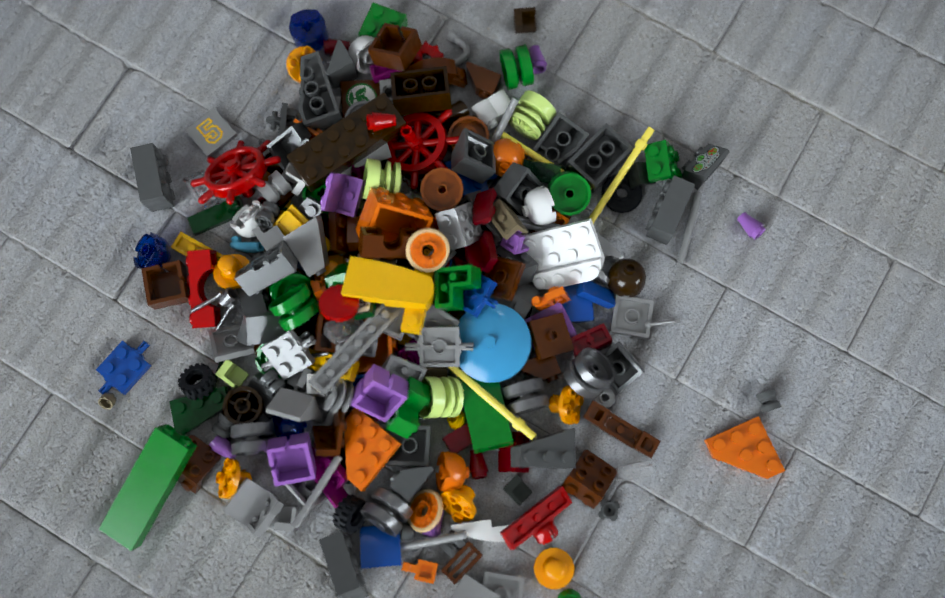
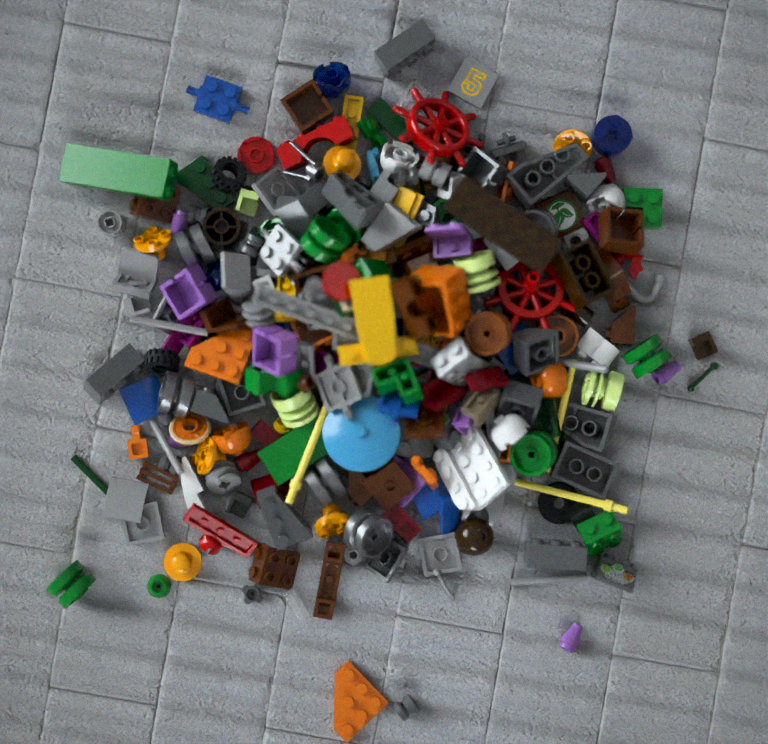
camera: 65 degrees right, 10 degrees up
(107, 400) = (182, 98): dark tan hinge -> none
(191, 349) = (256, 155): none -> red tile
(196, 514) = (111, 223): none -> light grey wheel
(213, 236) = (370, 129): none -> green plate
(379, 121) = (529, 250): red cone -> none
(423, 376) = (305, 383): none -> reddish brown plate
(424, 237) = (428, 336): orange wheel -> none
(486, 495) = (223, 478): none -> light grey piece
(546, 19) = (713, 366): none -> dark green hinge

